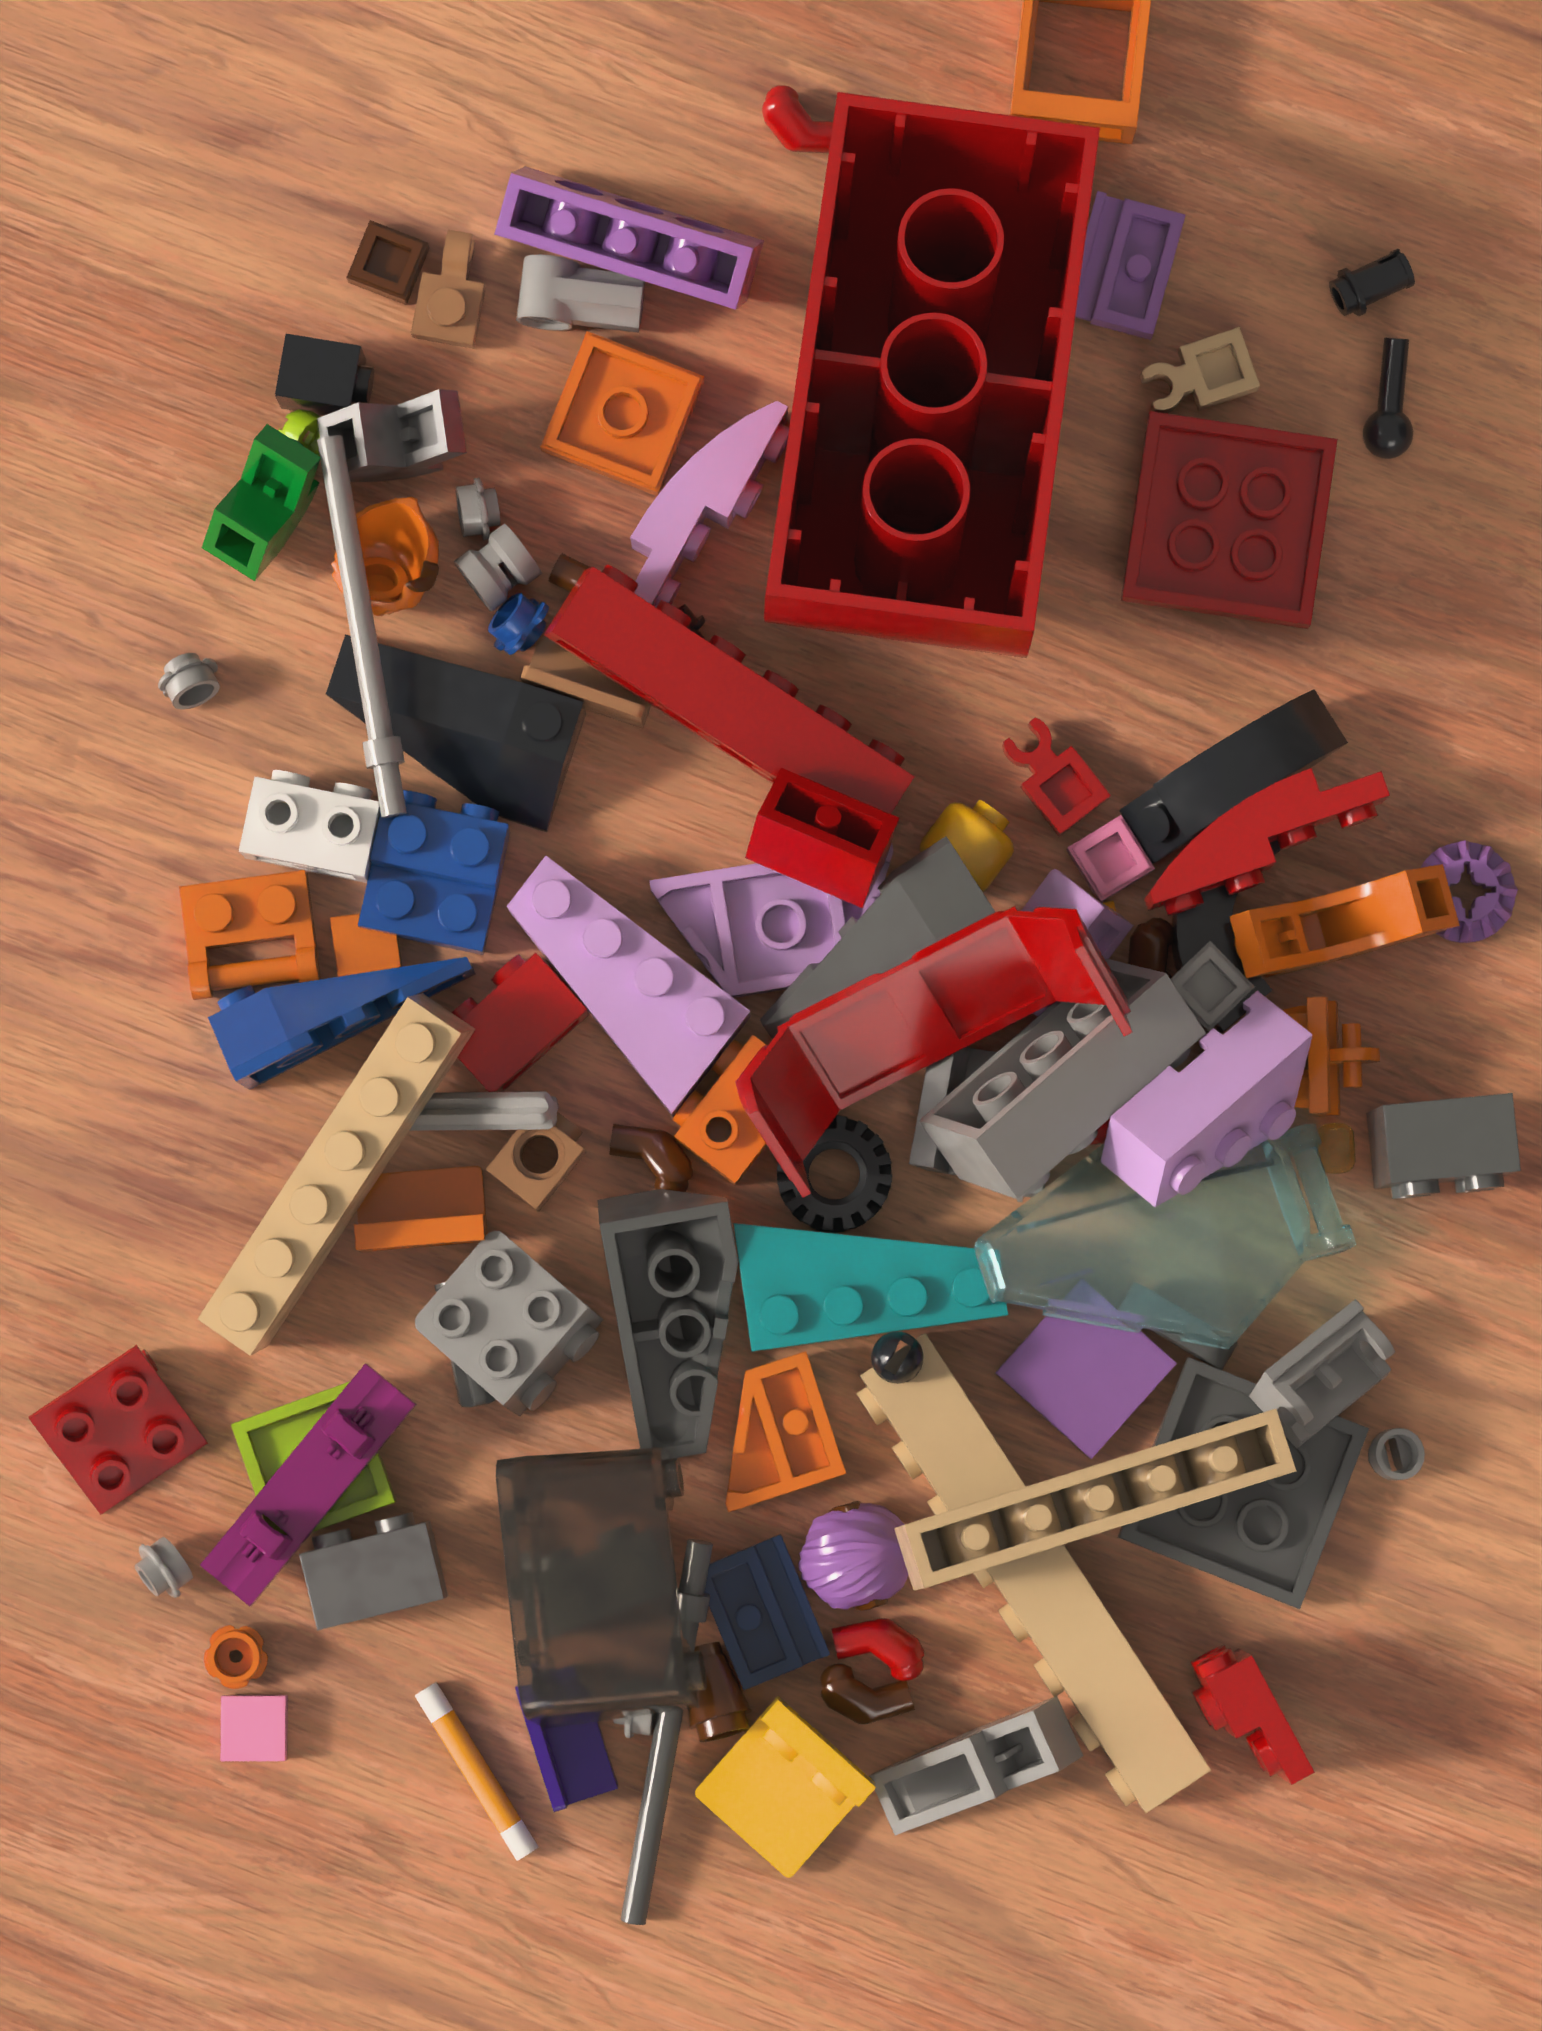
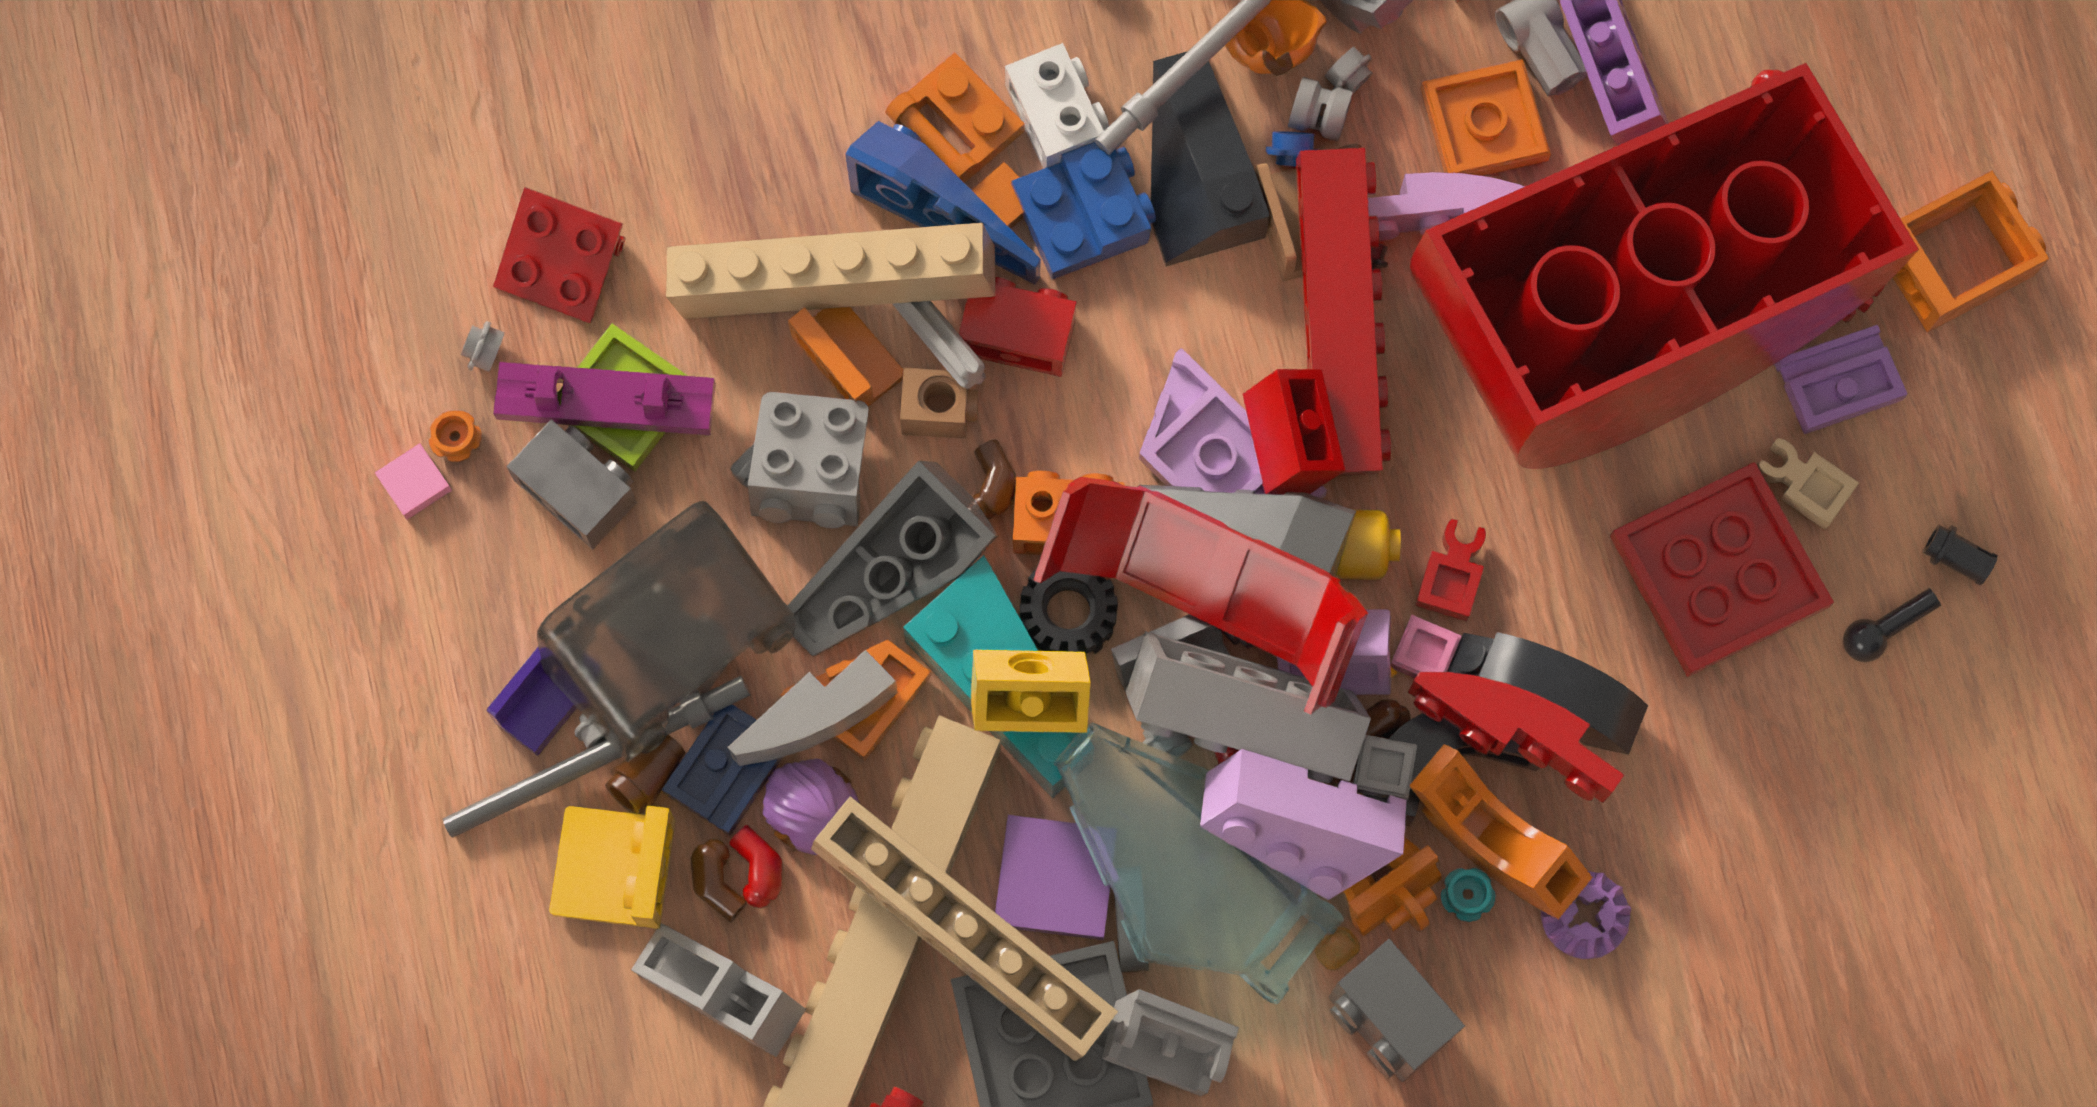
camera: 55 degrees right, 10 degrees down
(476, 1771) = (482, 650): light orange bar -> none
(639, 991) = (1098, 389): lavender wedge -> none
(778, 1493) = (815, 712): none -> light grey slope
(884, 1351) = (966, 740): black hinge -> none
(913, 1278) = (1030, 691): none -> yellow brick
(1385, 979) = (1473, 880): none -> teal plate

